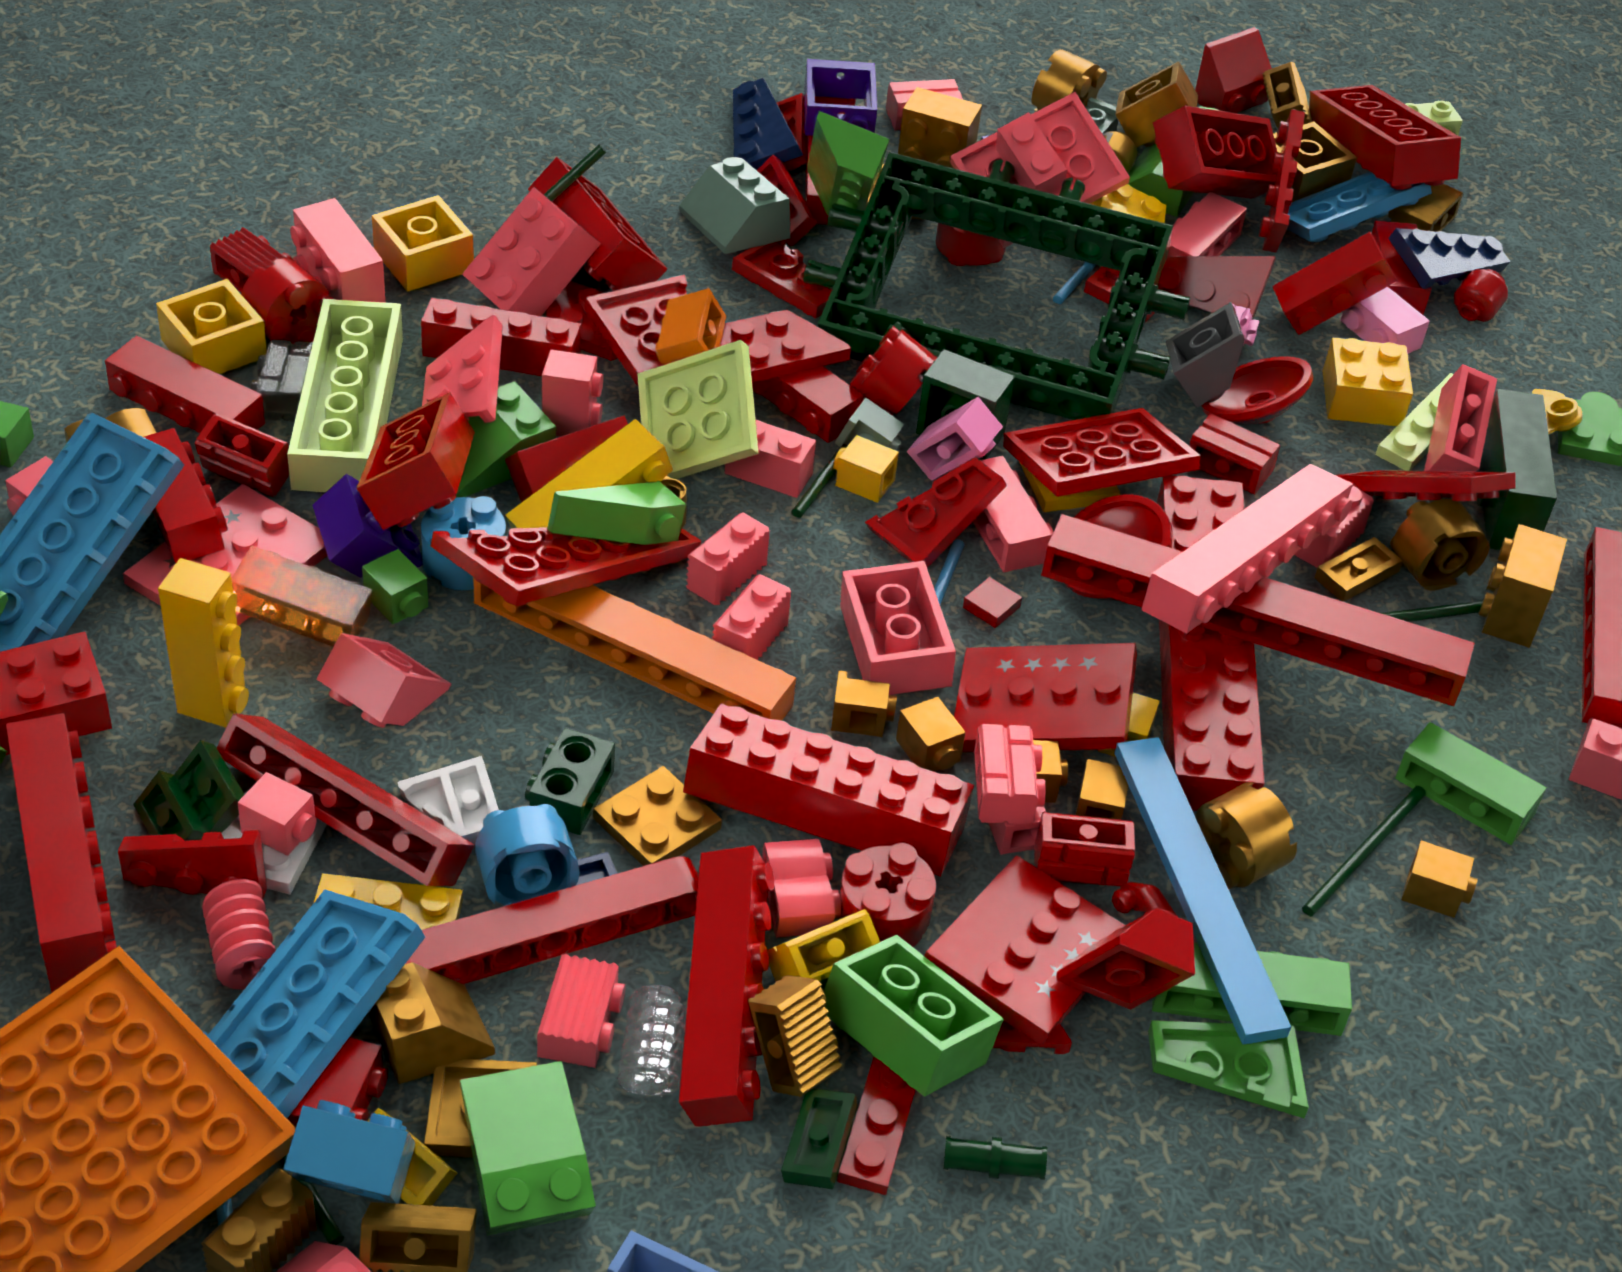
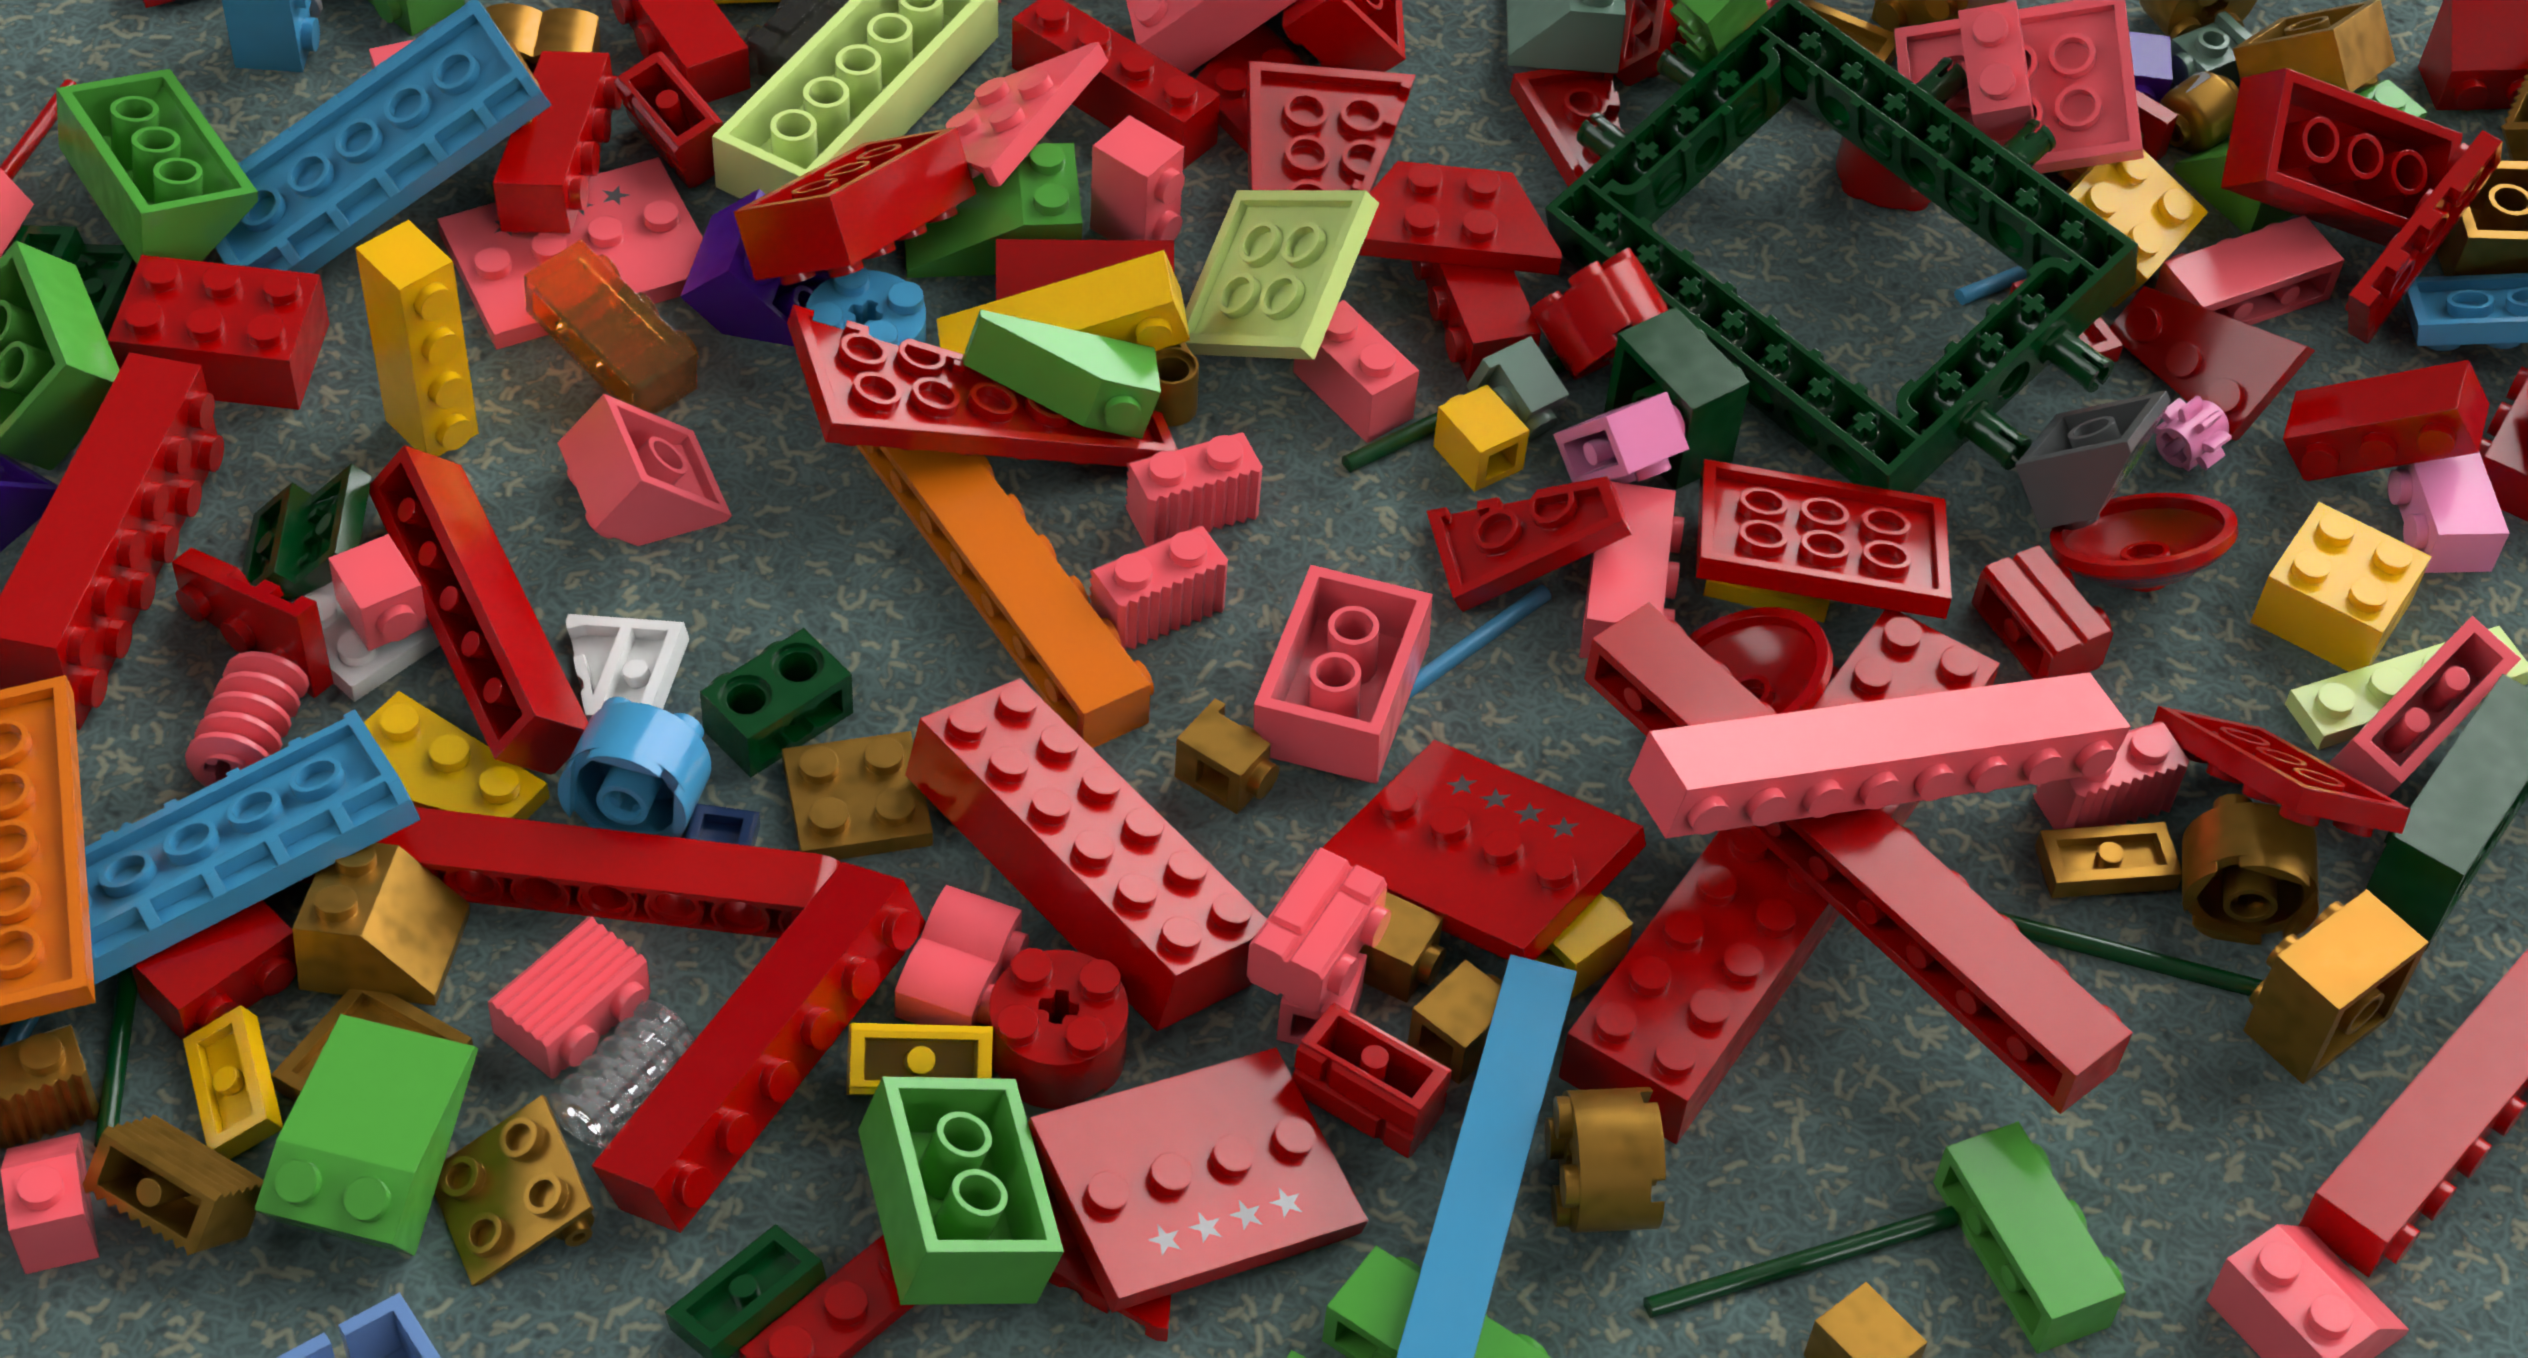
camera: 30 degrees right, 5 degrees up
(350, 1153) = (144, 1043): dark azure brick -> none
(396, 586) = (743, 361): bright green brick -> none
(634, 1143) = (513, 1192): none -> pearl gold hinge
(690, 326) = (1350, 150): orange brick -> none
(795, 1035) = (790, 1147): pearl gold brick -> none
(930, 735) = (1279, 835): pearl gold brick -> none
(992, 602) = (1525, 692): tile -> none
(1135, 960) = (1298, 1255): red slope -> none
(1140, 898) = (1419, 1186): red arm -> none

